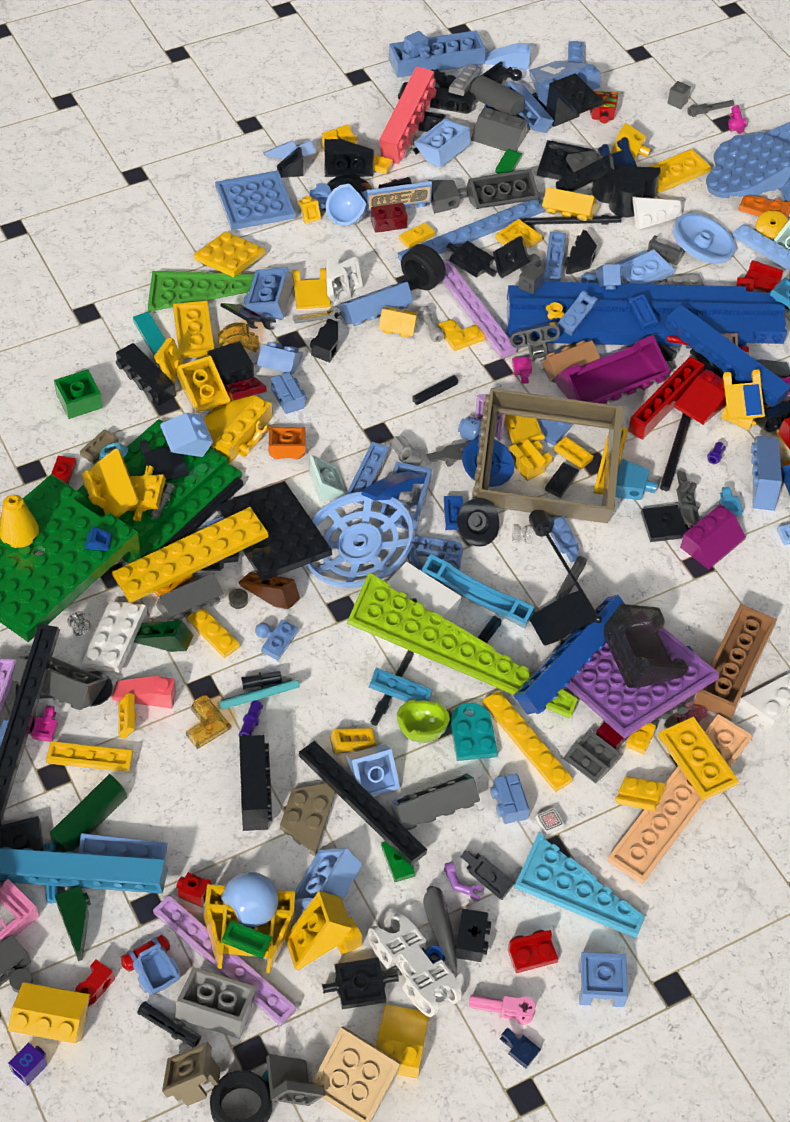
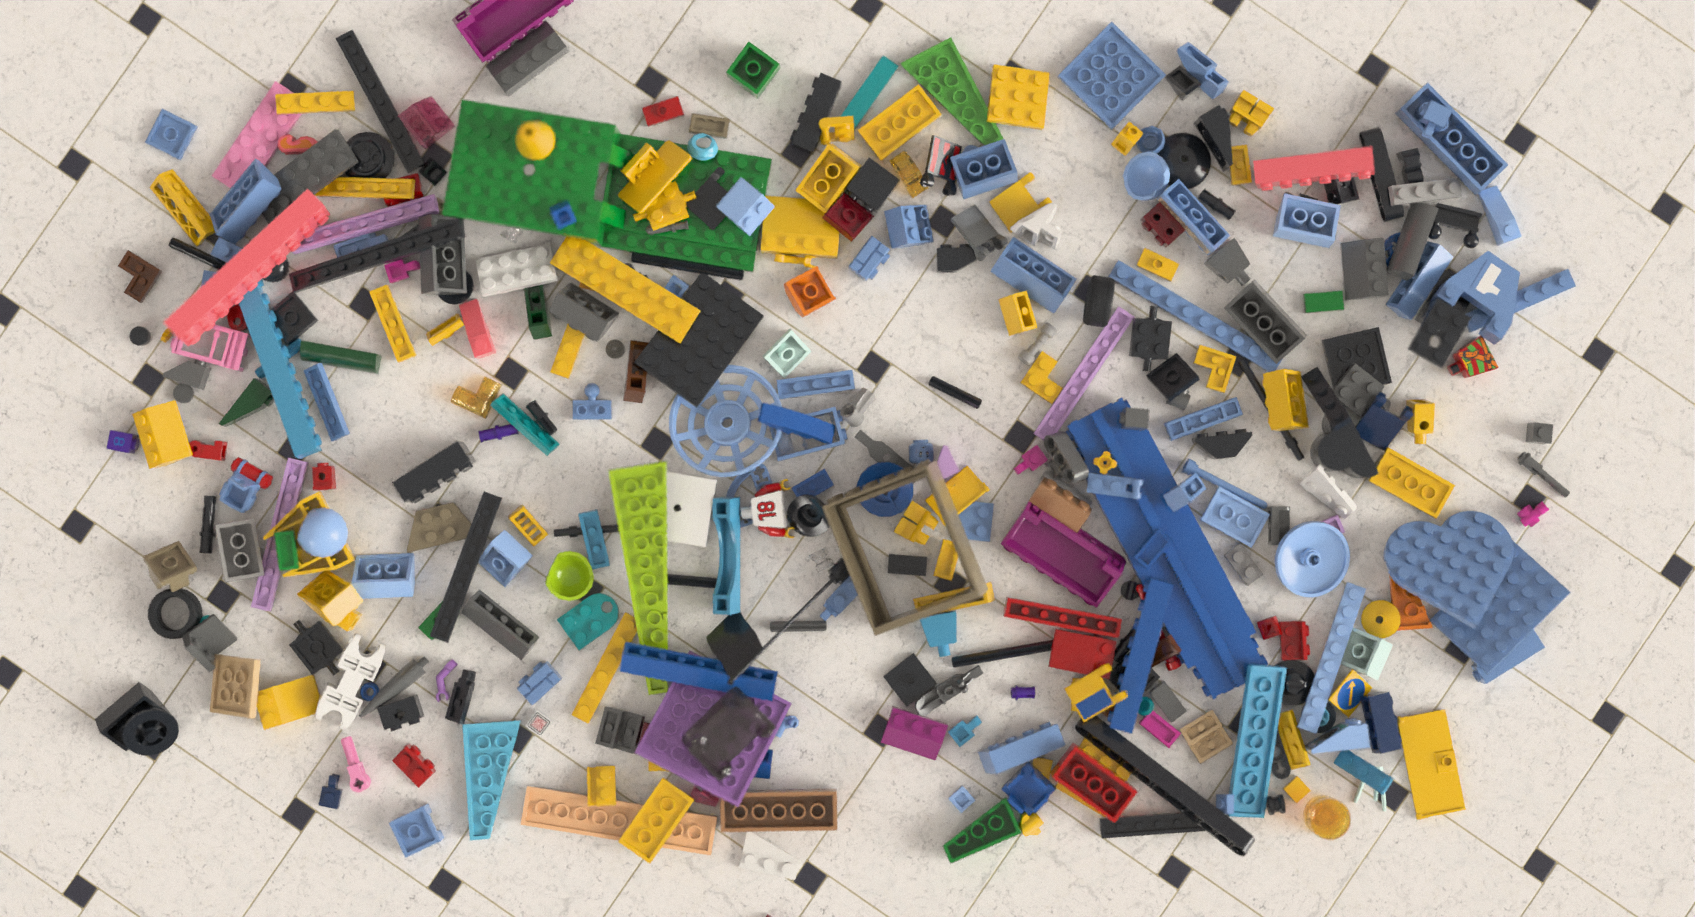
camera: 65 degrees right, 35 degrees up
(458, 543) = (769, 510): none -> torso

